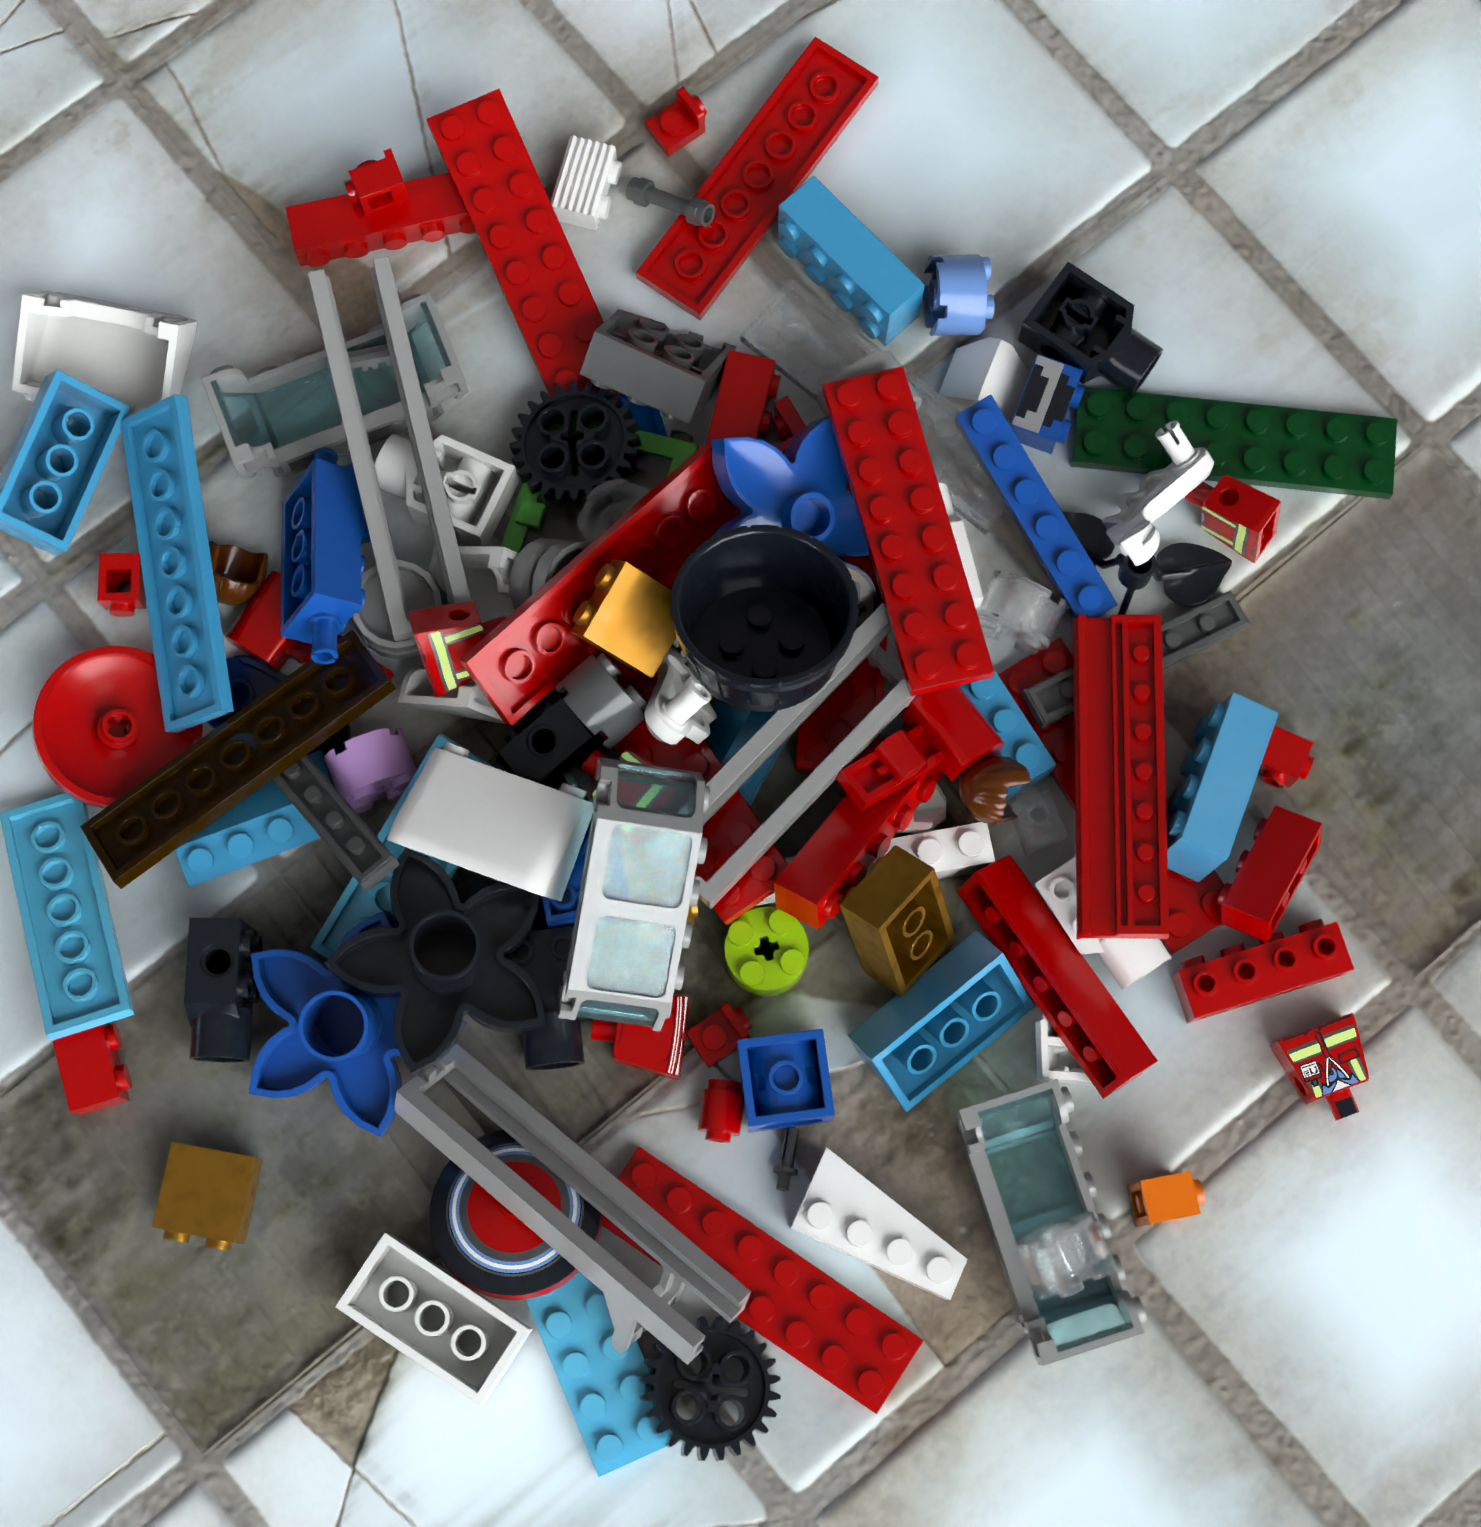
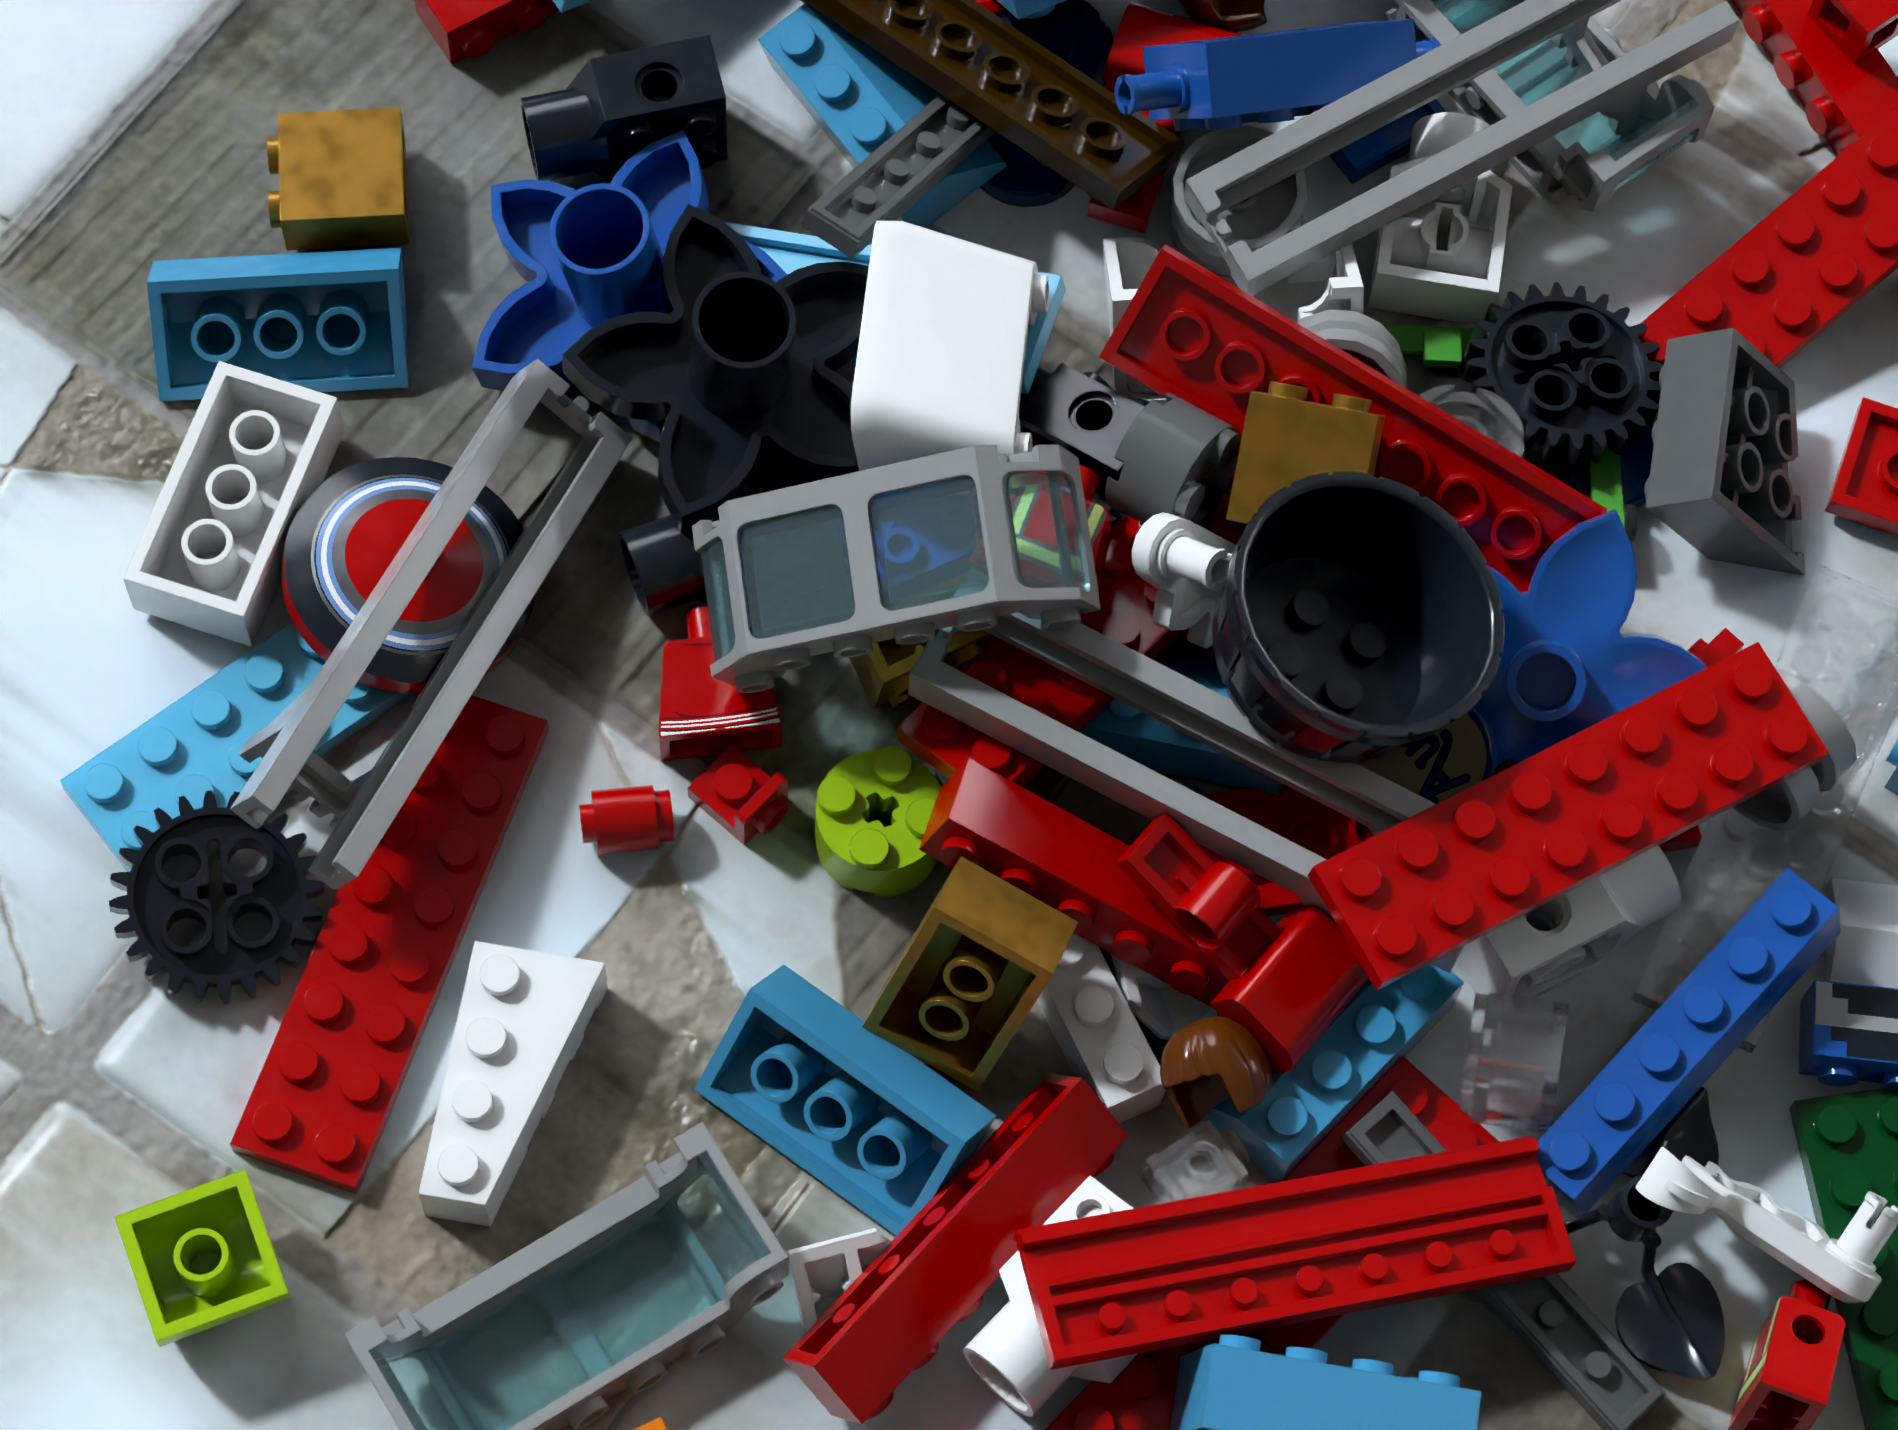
camera: 70 degrees right, 10 degrees down
(302, 1260) = (294, 316): none -> dark azure slope
(372, 768) = (996, 211): lavender brick -> none
(446, 636) = (1205, 228): red torso -> none
(744, 397) = (1704, 589): red brick -> none
(785, 1080) = (688, 881): blue brick -> none
(786, 1164) = (580, 932): dark grey piece -> none
(961, 1446) = (202, 1258): none -> lime brick
(1065, 1255) = (524, 1342): clear brick -> none

